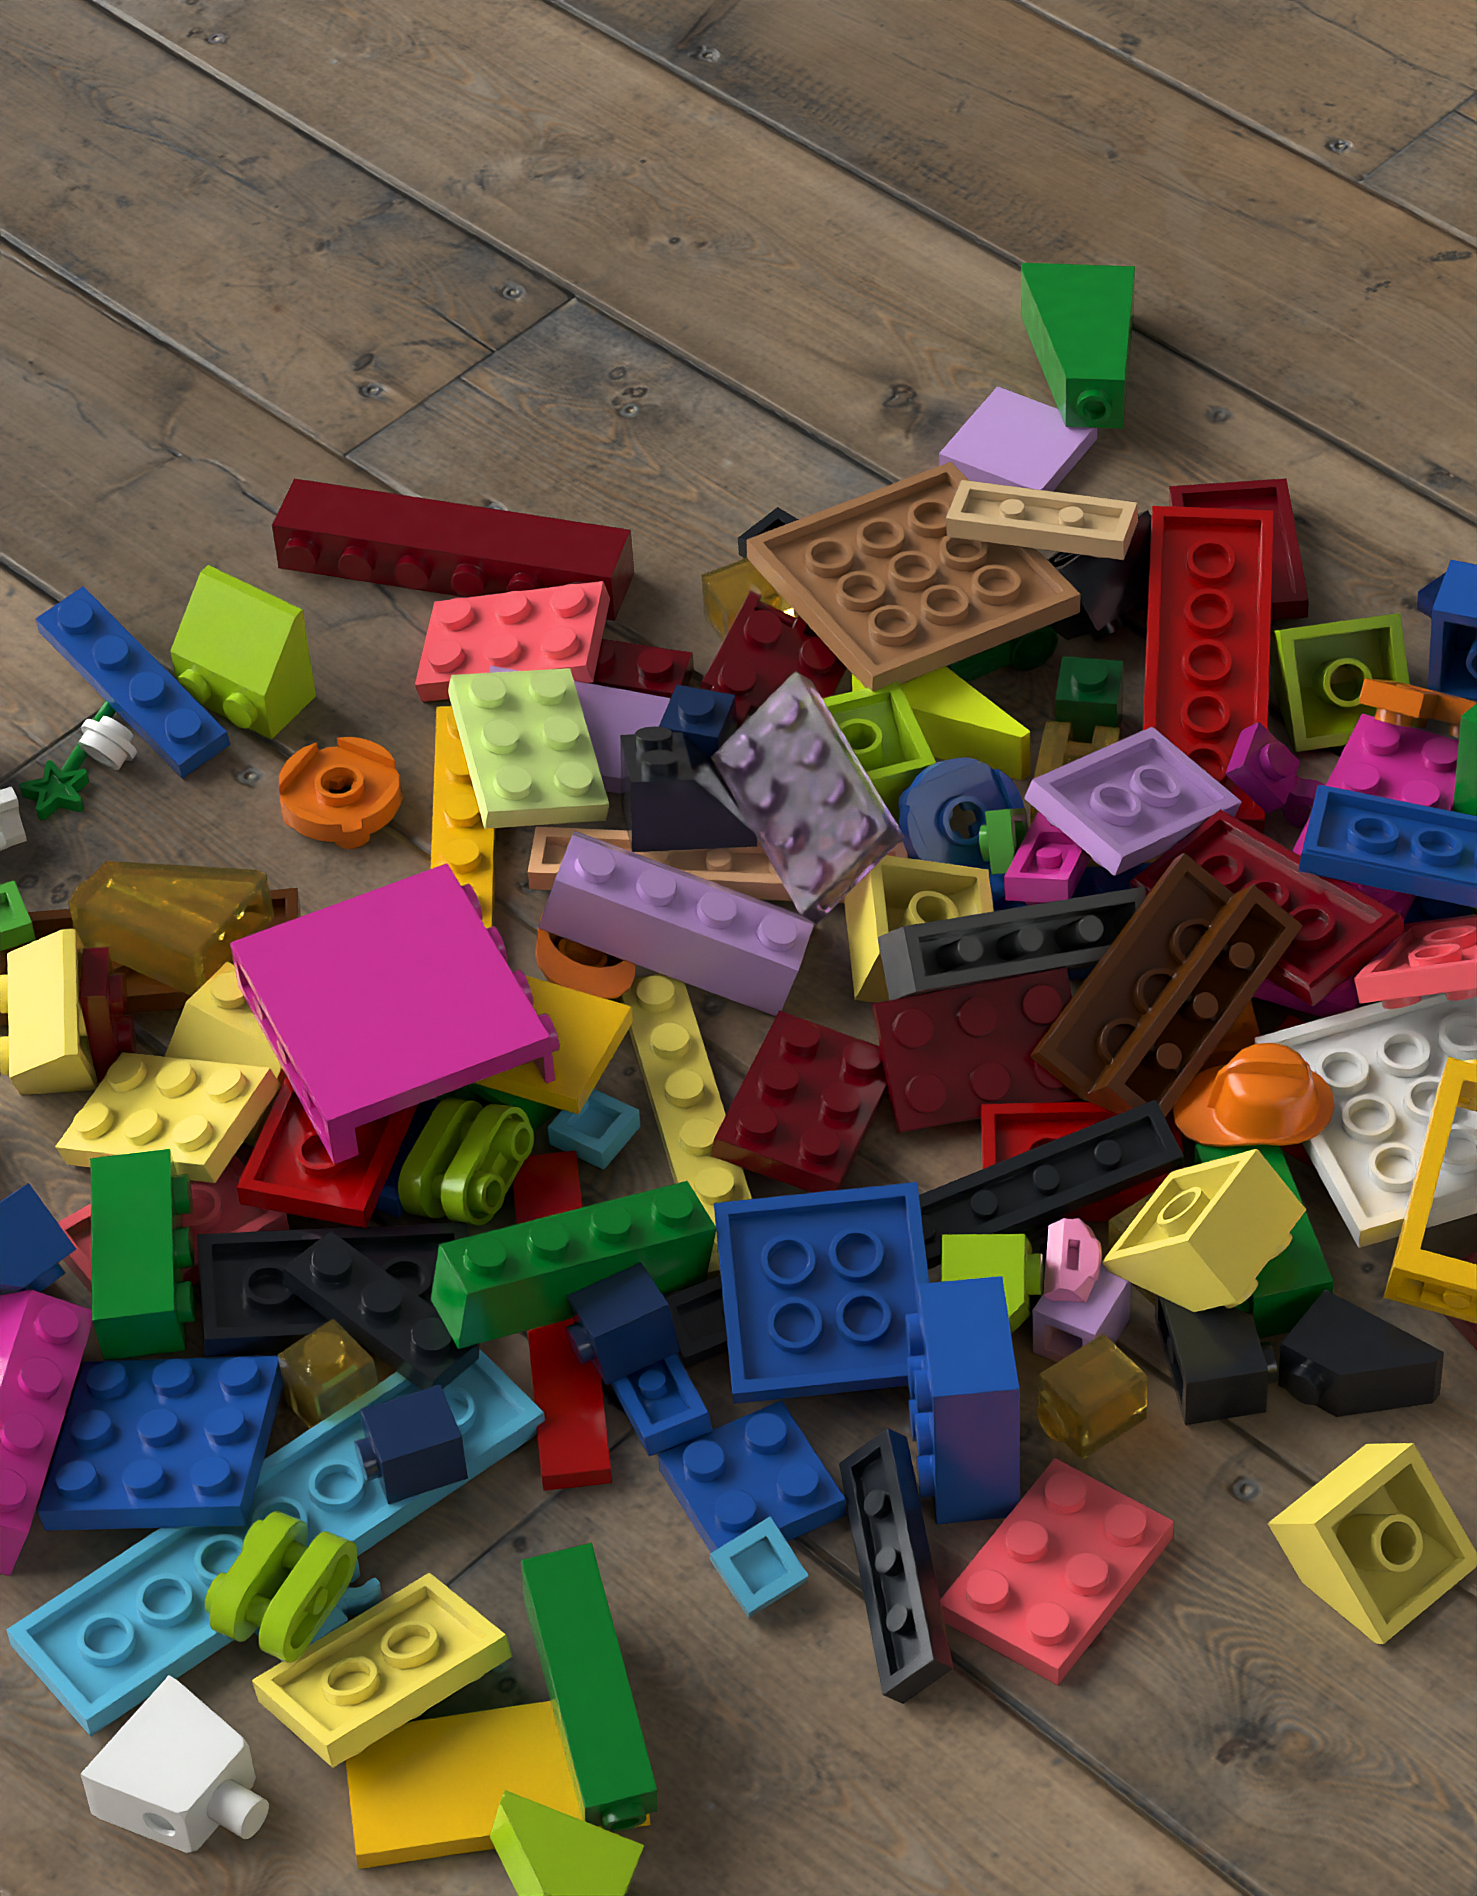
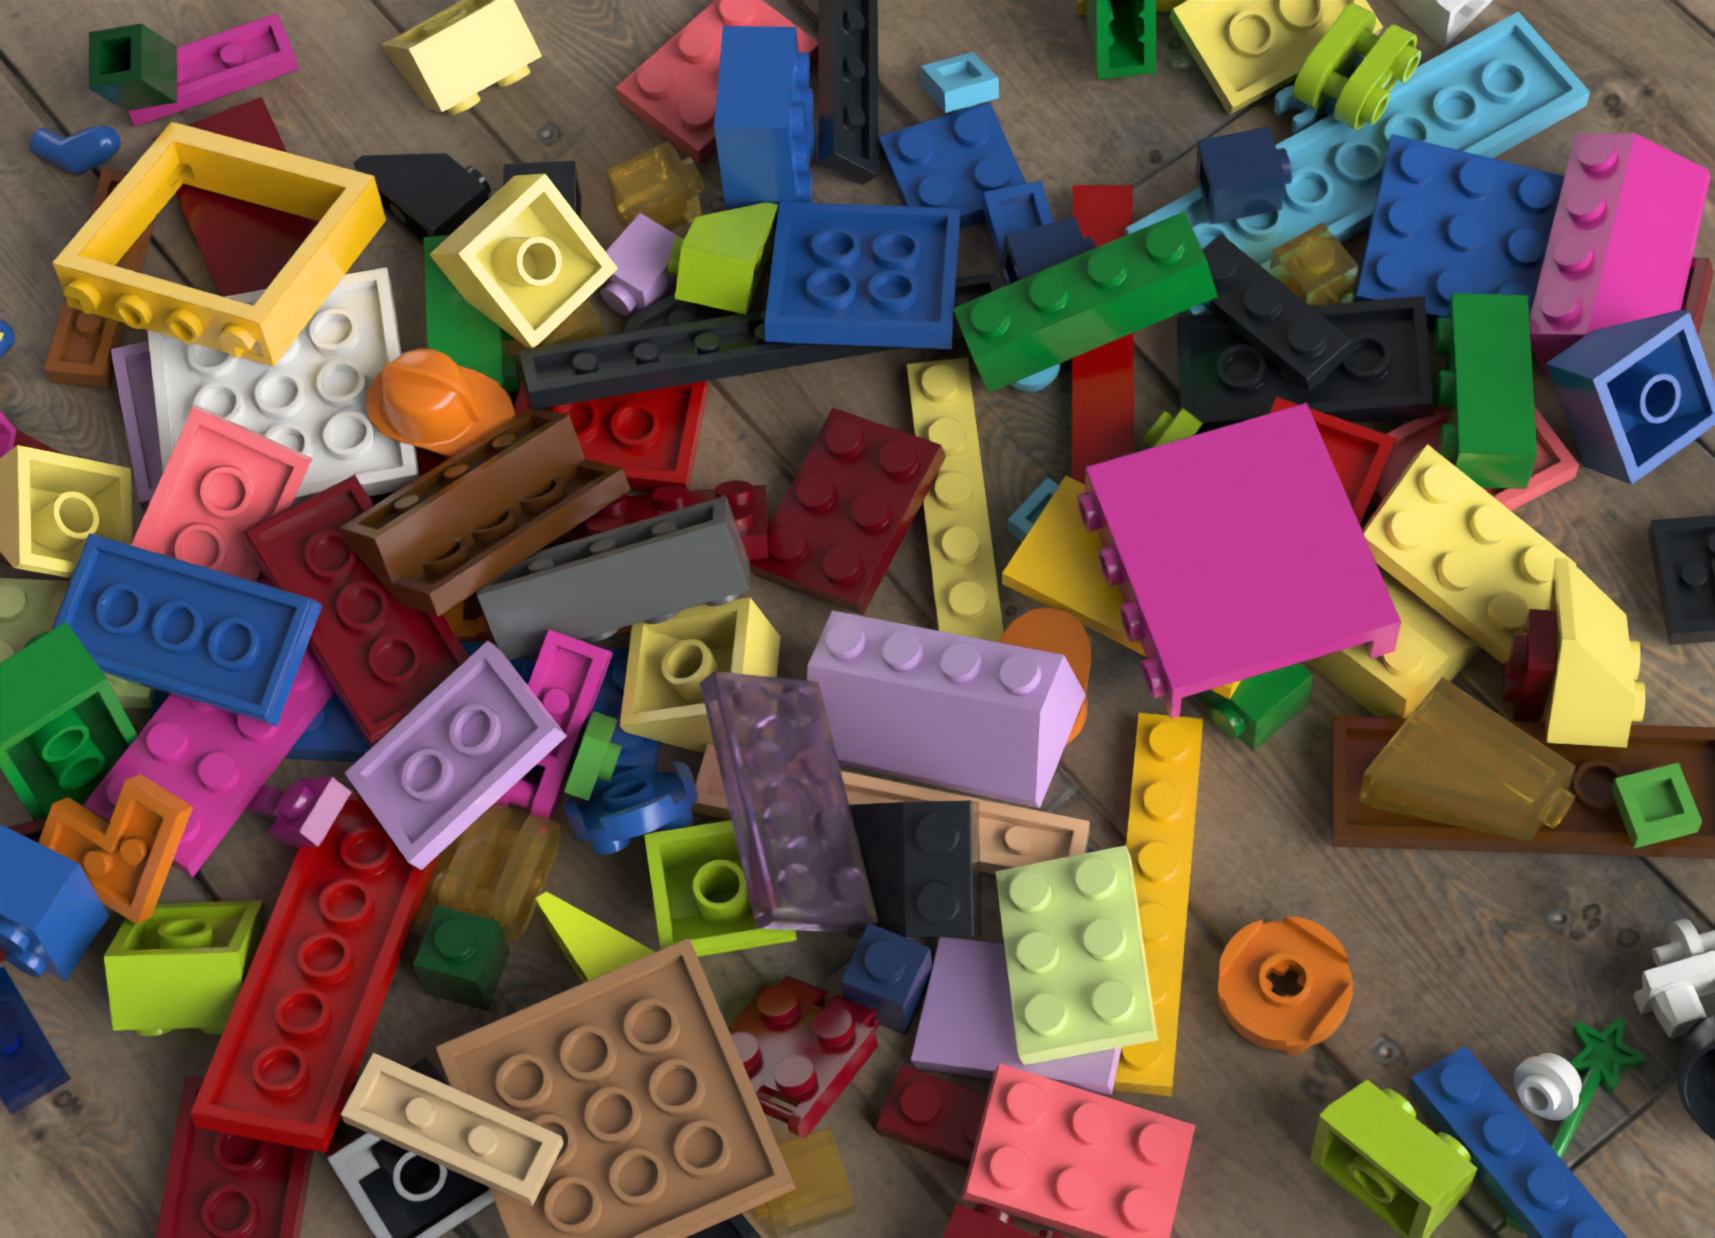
camera: 170 degrees left, 15 degrees up
(1071, 1261) = (642, 274): bright pink piece -> none

